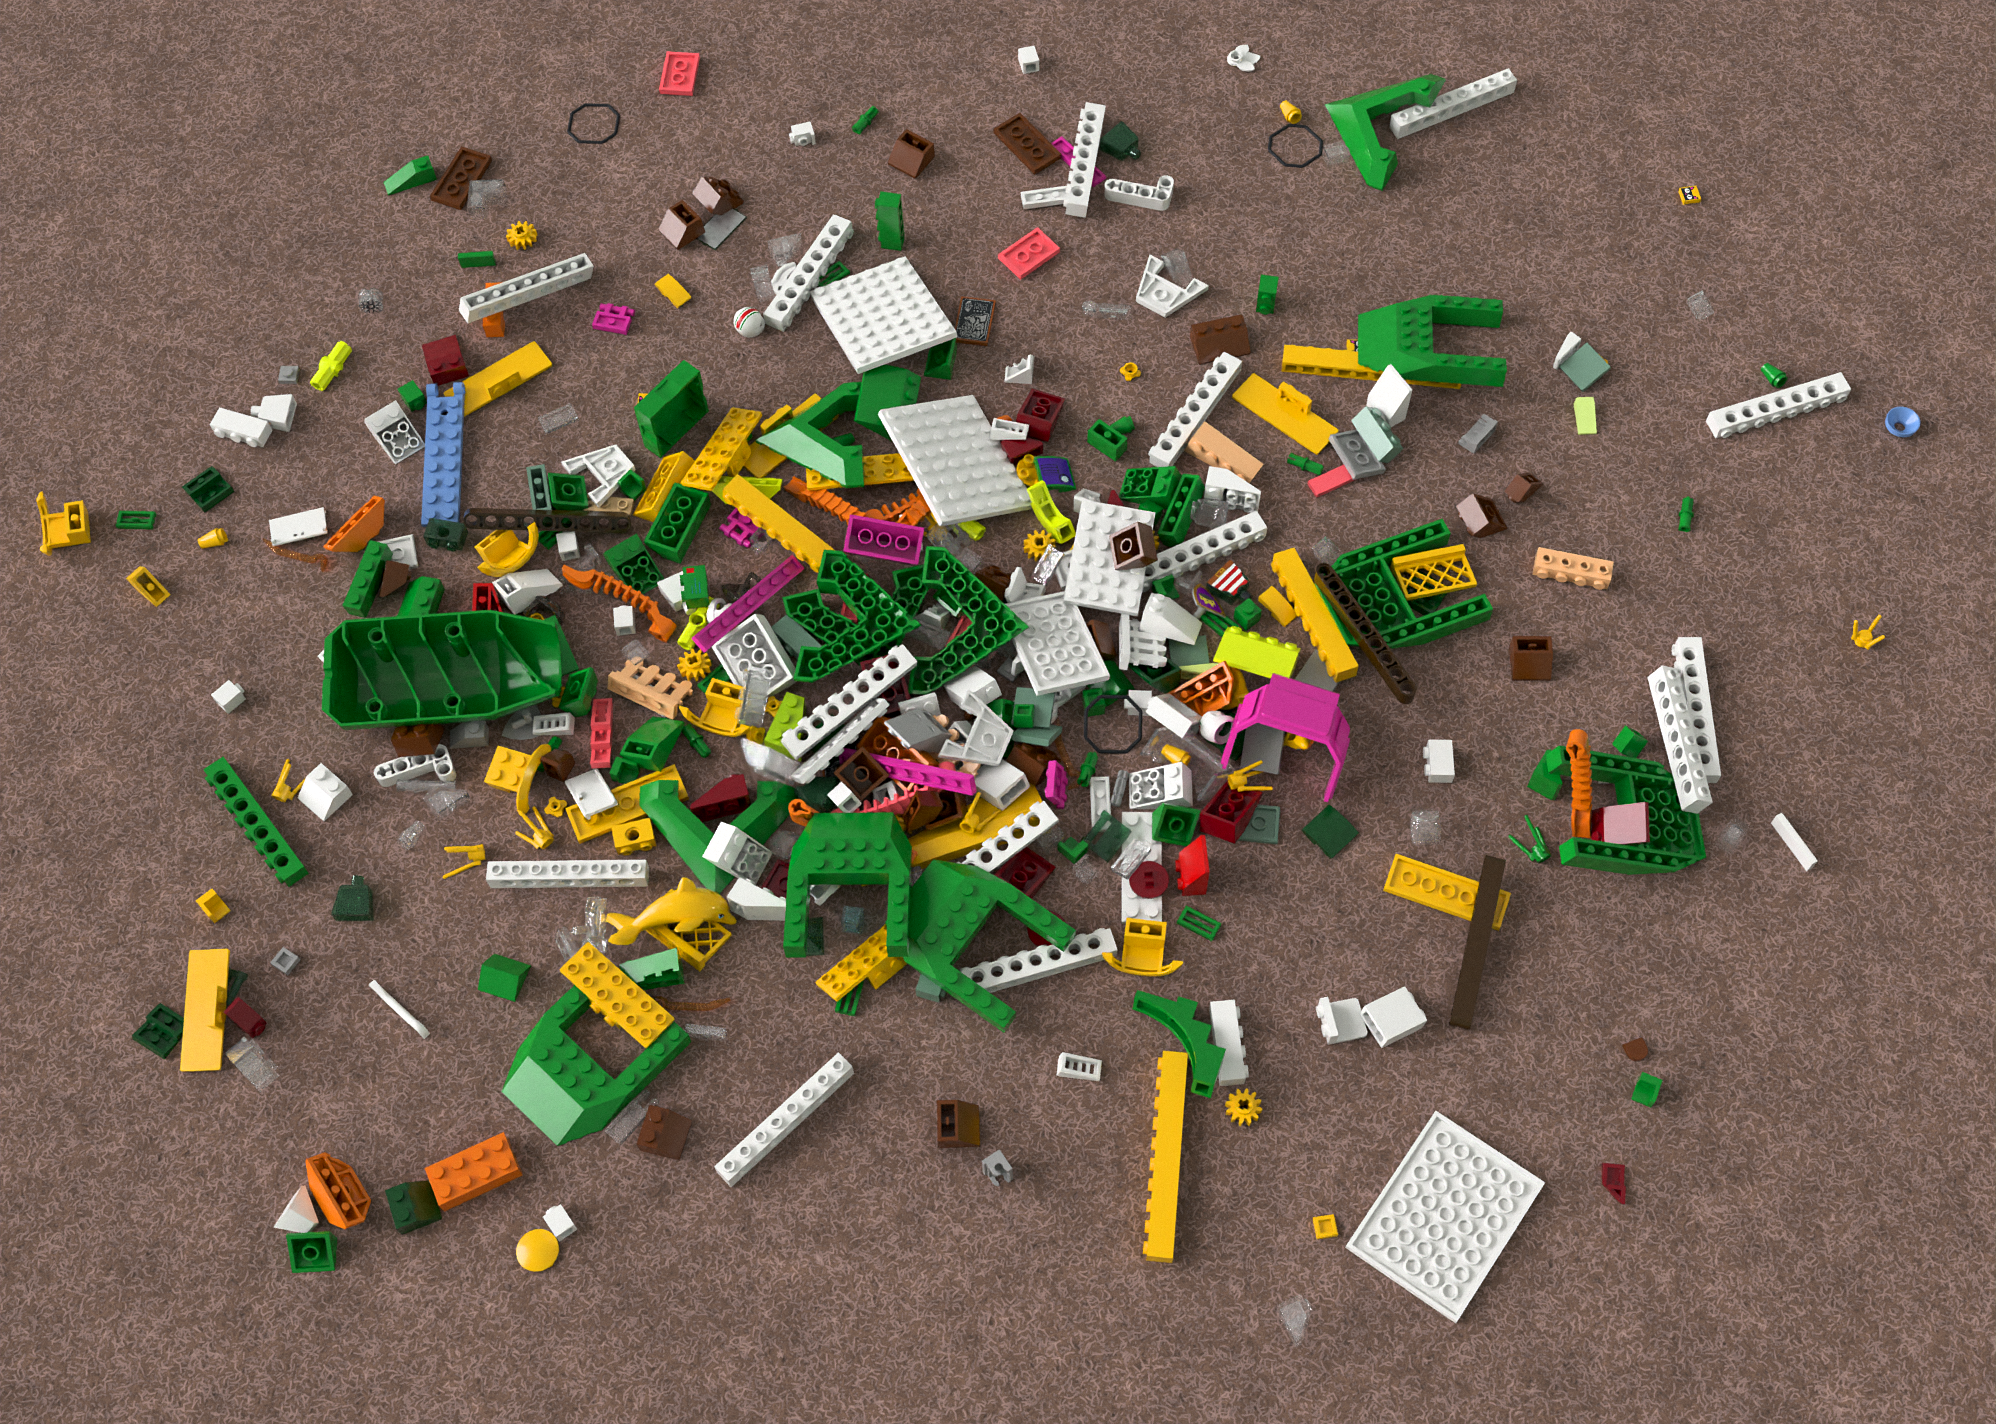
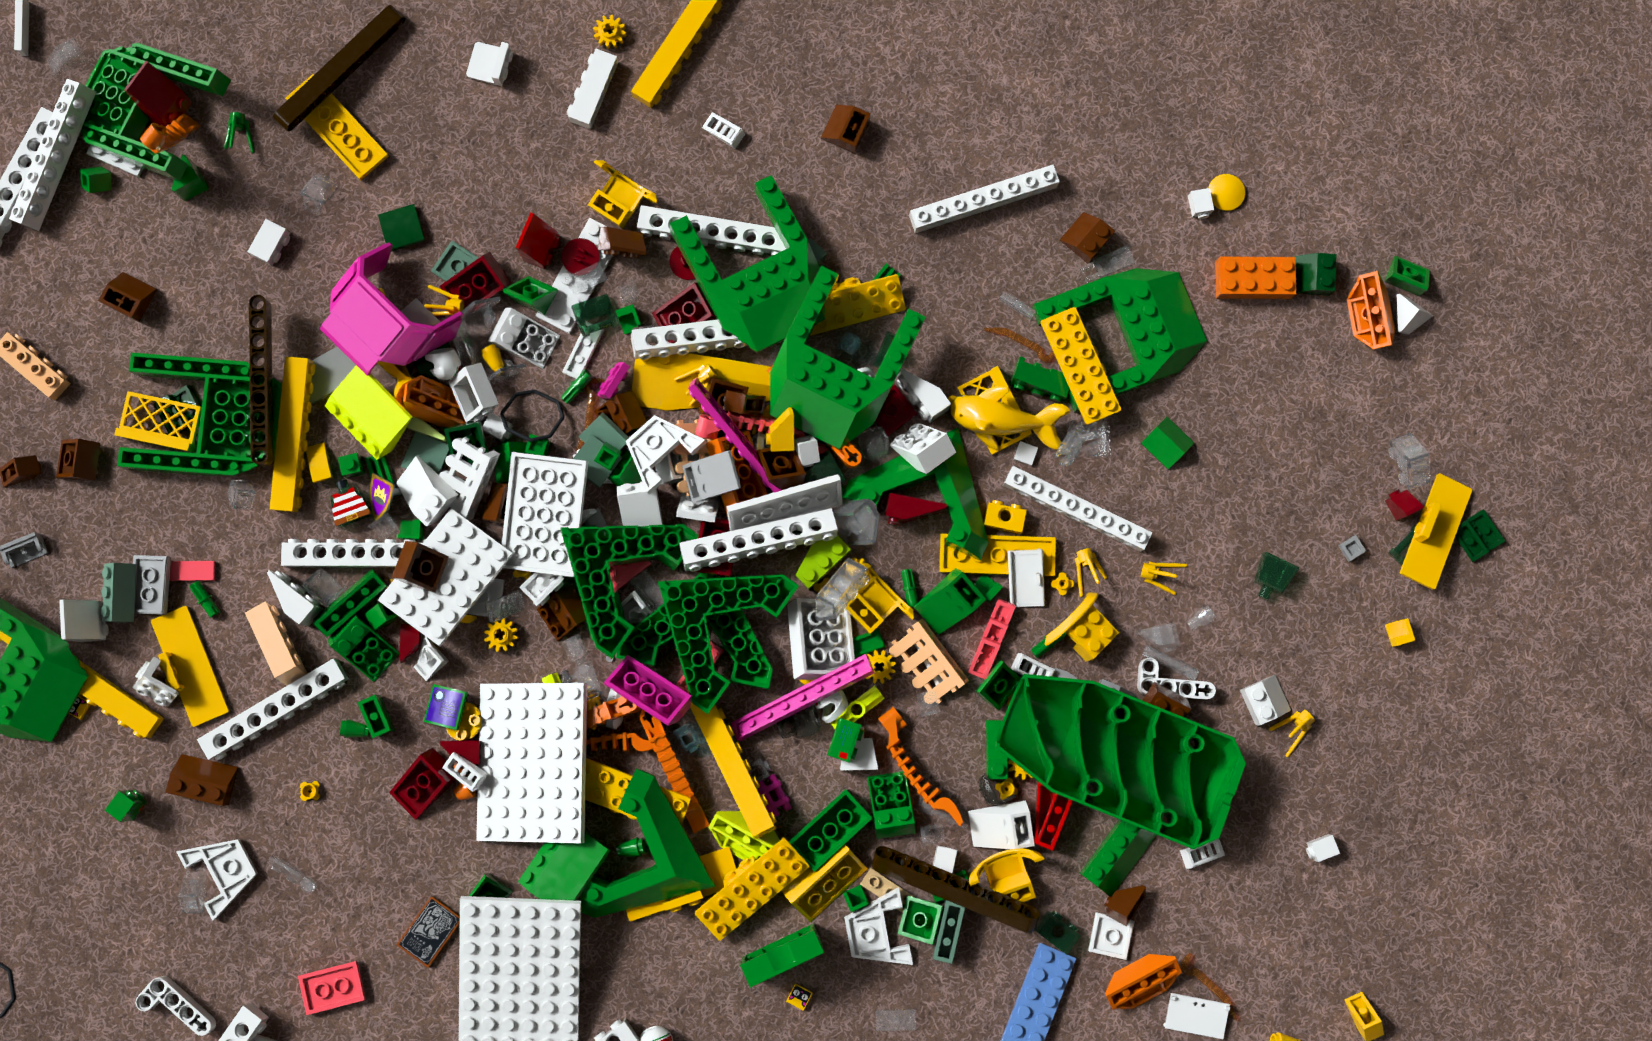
camera: 160 degrees left, 20 degrees up
(221, 771) = (1333, 711): green brick -> none
(367, 579) = (1150, 914): green brick -> none
(399, 1009) = (1267, 455): white piece -> none
(558, 764) = (1043, 621): reddish brown slope -> none
(624, 620) = (923, 748): white brick -> none
(638, 903) = (1025, 453): none -> white tile
(793, 636) = (774, 642): sand green brick -> none
(828, 534) = (685, 729): none -> clear light blue window
(873, 797) = (782, 432): none -> yellow slope
(997, 1165) = (833, 74): light grey hinge -> none
(1000, 784) = (662, 401): white brick -> none
(1020, 372) = (414, 845): white slope -> none
(1048, 514) = (474, 658): neon yellow arch -> none
(1114, 903) = (620, 241): none -> reddish brown slope
(1119, 788) = (558, 357): light grey axle -> none
(1181, 922) = (567, 215): green tile -> none
(1193, 1034) = (617, 99): green arch -> none
(1312, 382) = (151, 687): none -> white bracket
(1393, 1017) = (446, 42): white brick -> none

